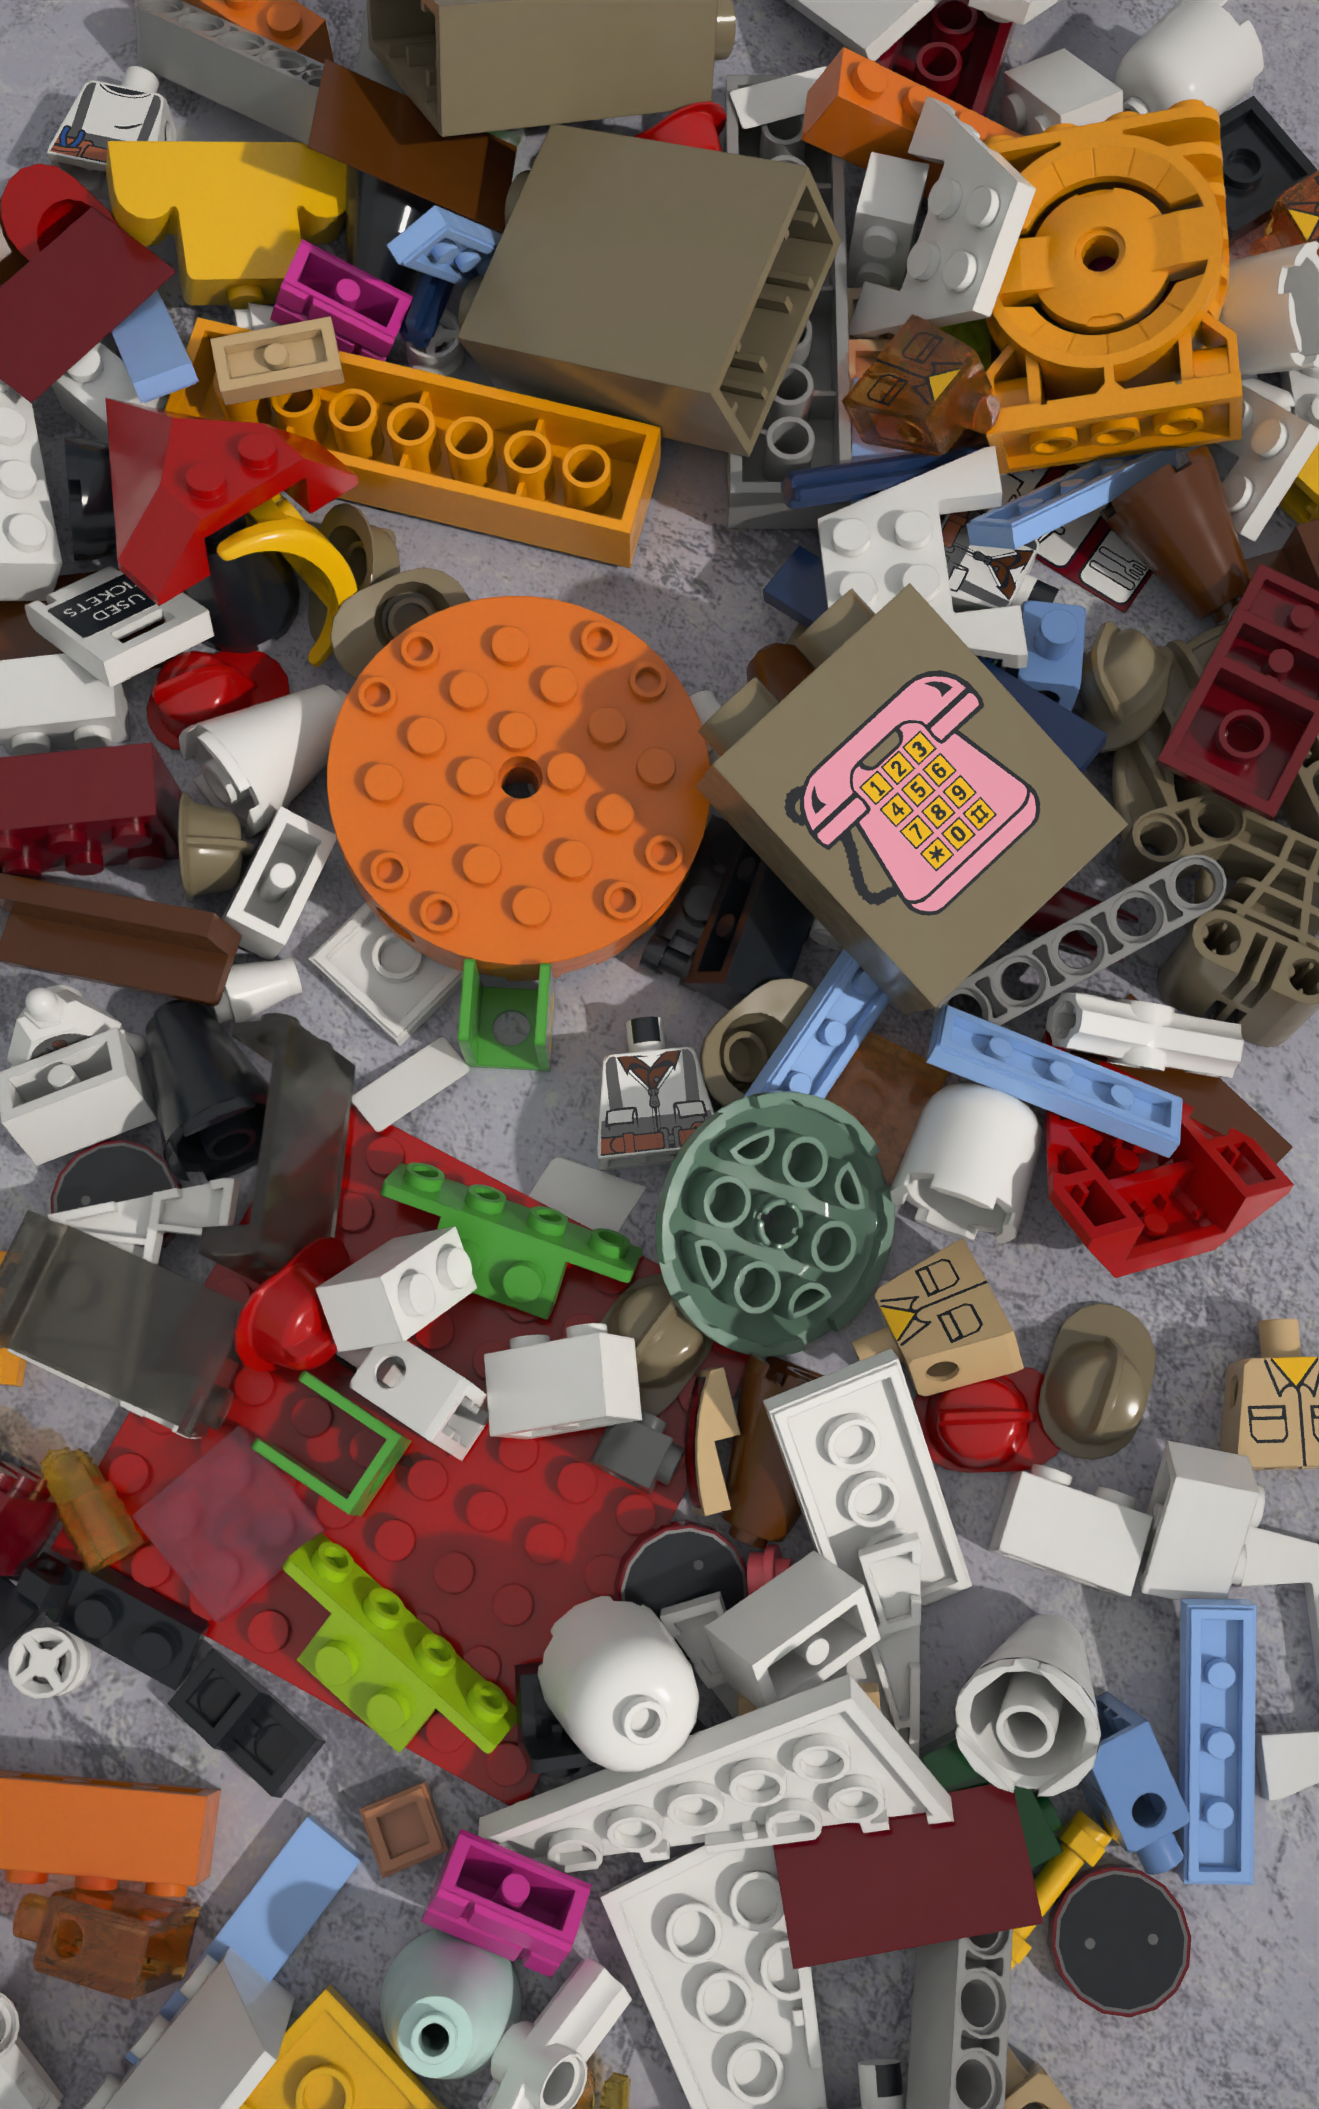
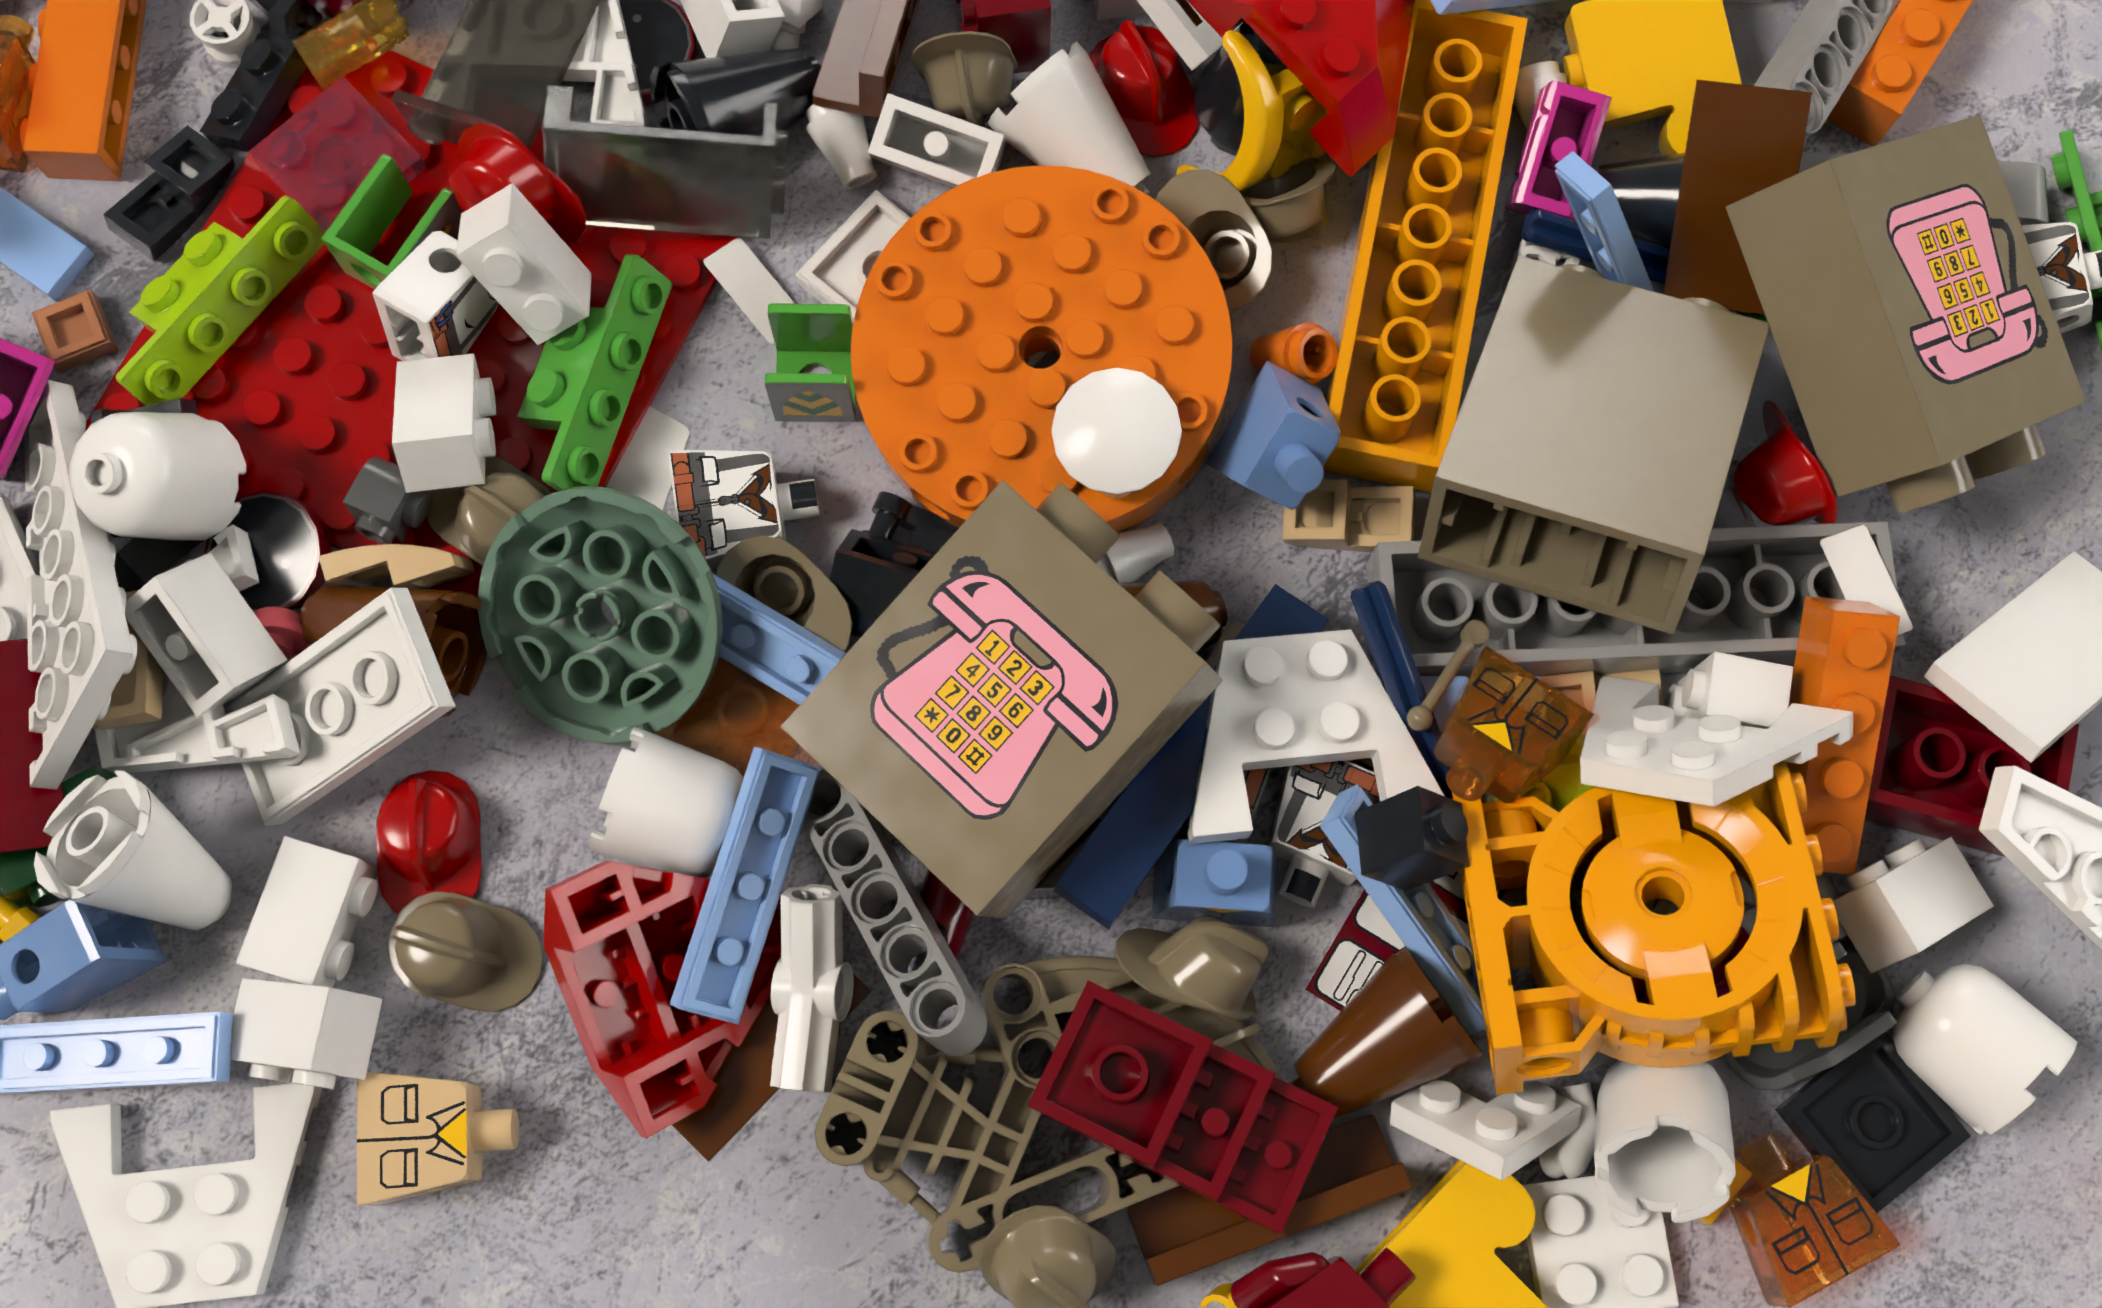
camera: 85 degrees right, 0 degrees up
(277, 360) = (1475, 89): tan plate -> none
(525, 558) = (1301, 349): none -> orange cone
(622, 702) = (1116, 431): none -> white dish
(624, 567) = (1278, 438): none -> medium blue torso
(680, 537) = (1351, 517): none -> tan slope
(826, 416) = (1473, 636): none -> dark tan hinge
(943, 1324) = (507, 782): tan torso -> none
(1032, 465) = (1412, 838): none -> black brick

